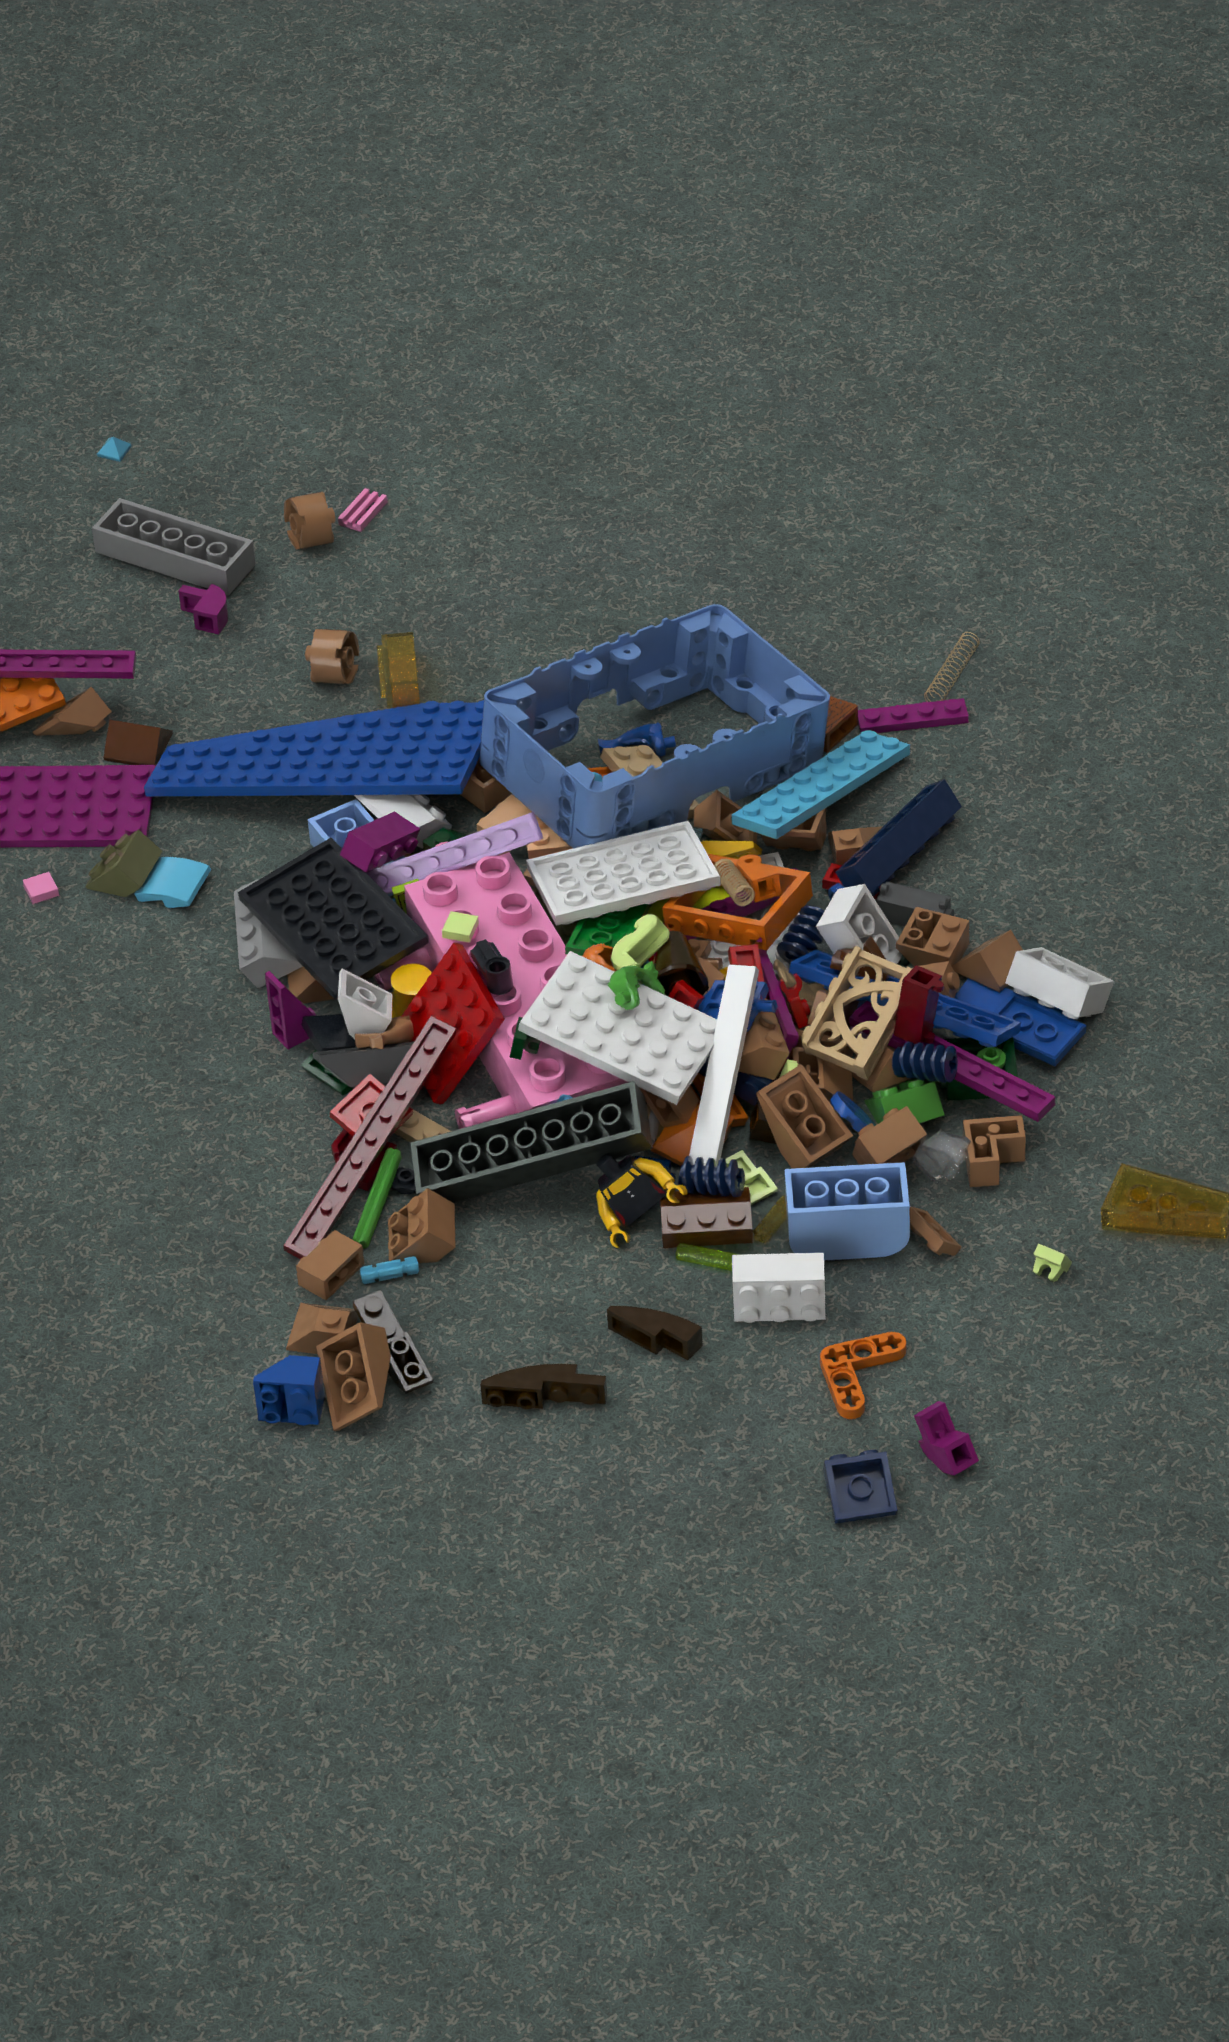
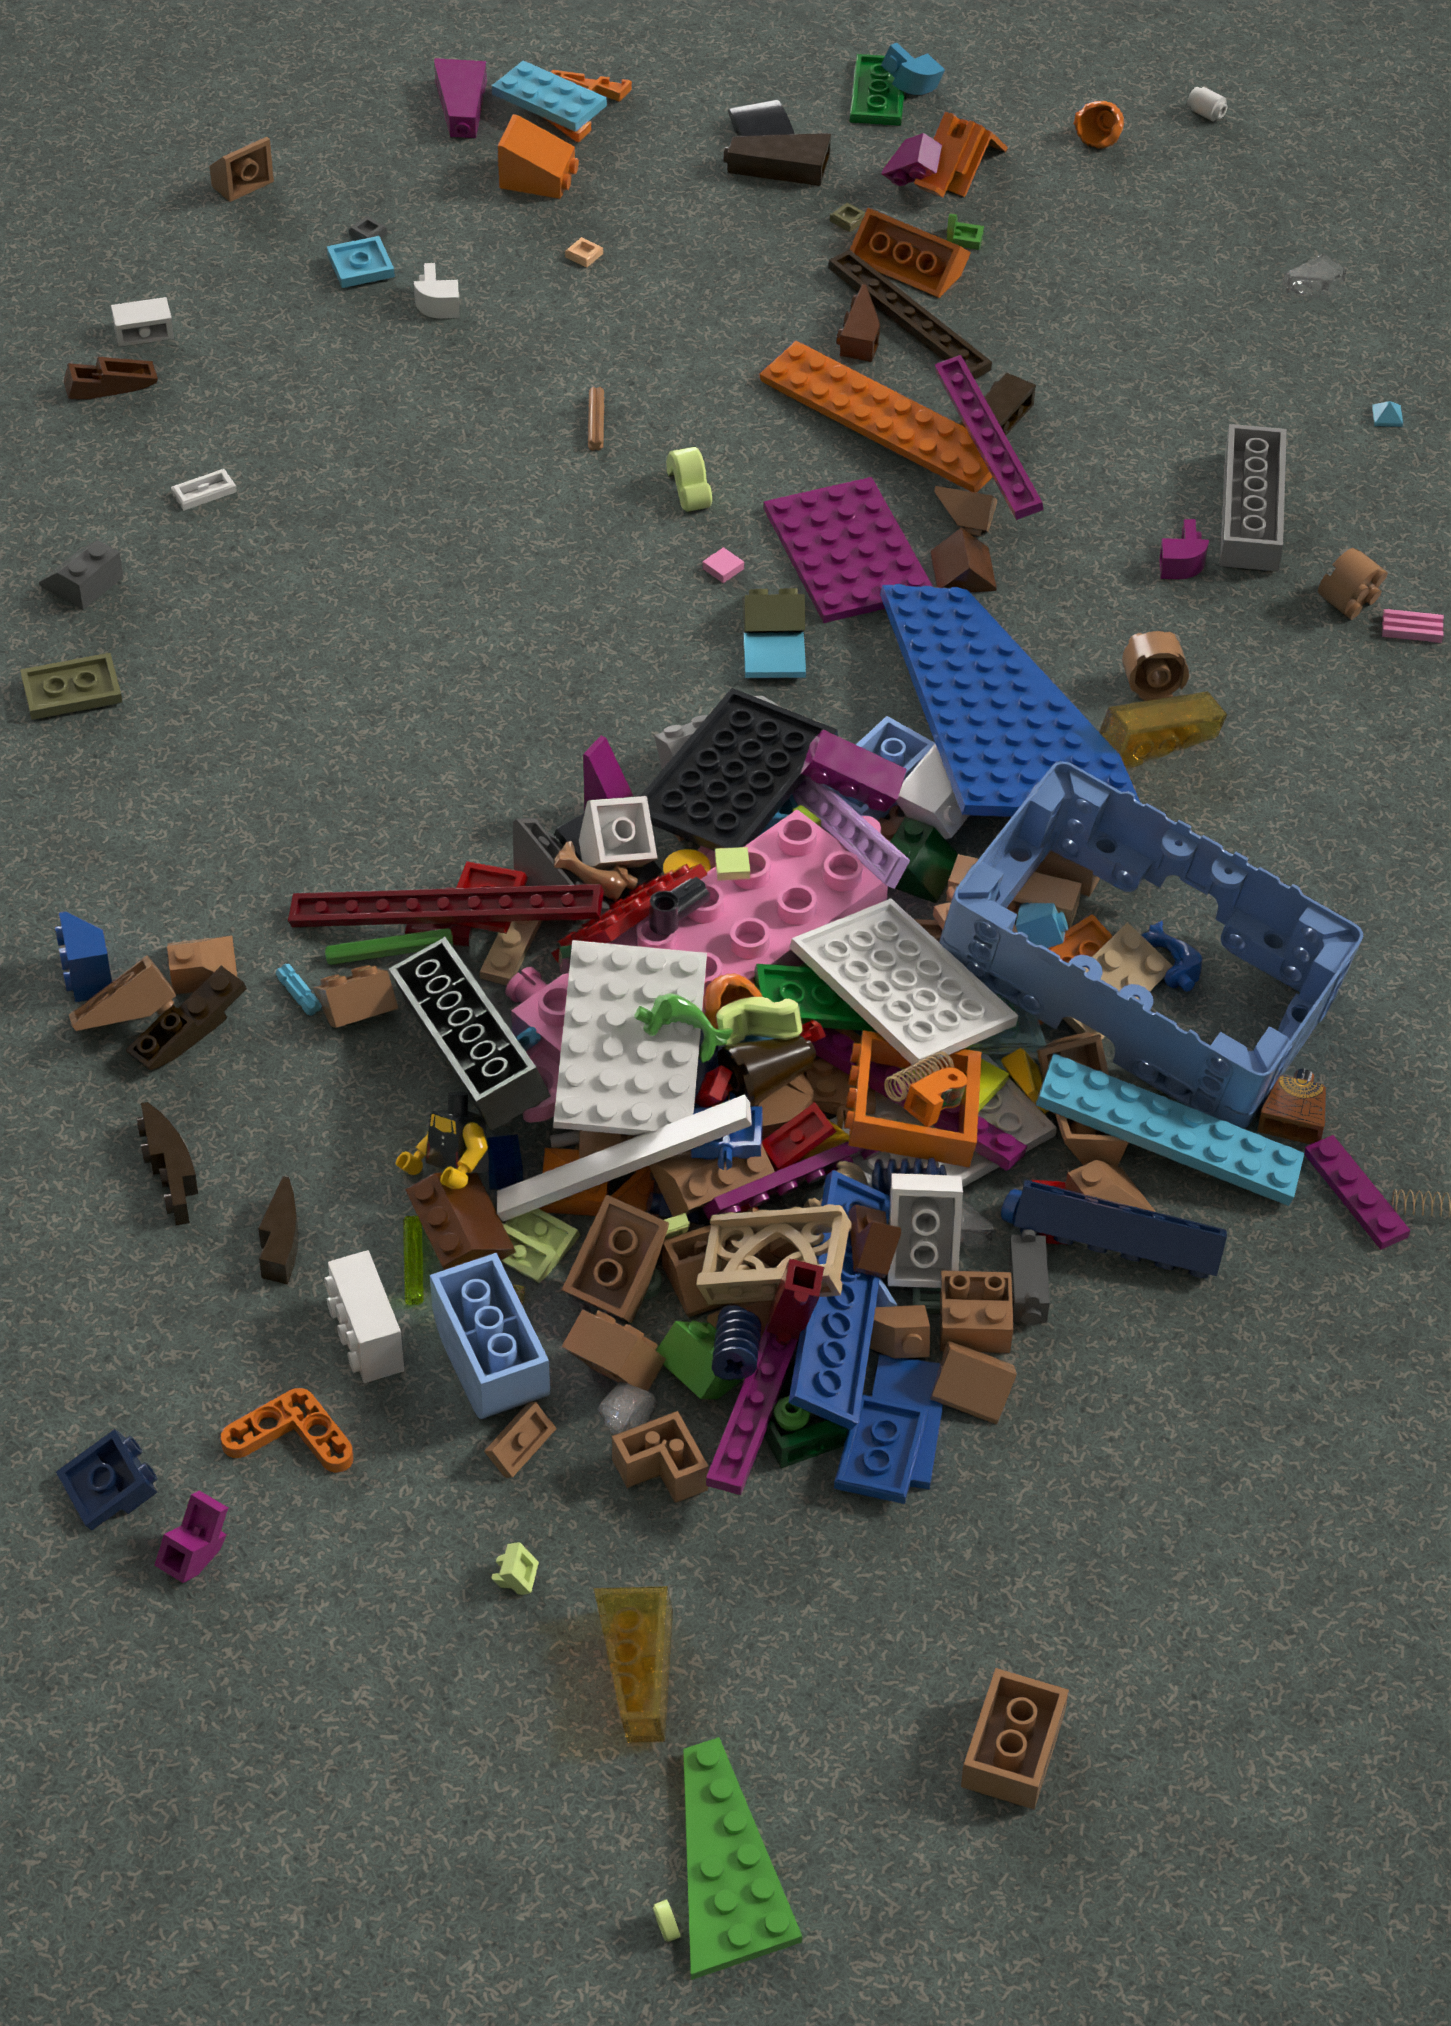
camera: 65 degrees right, 5 degrees up
(330, 1264) = (281, 938): medium nougat brick -> none
(712, 1178) = (492, 1203): dark blue piece -> none
(798, 1007) = (801, 1192): red plate -> none
(851, 1111) = (657, 1306): blue tile -> none
(1059, 983) = (953, 1447): white brick -> none

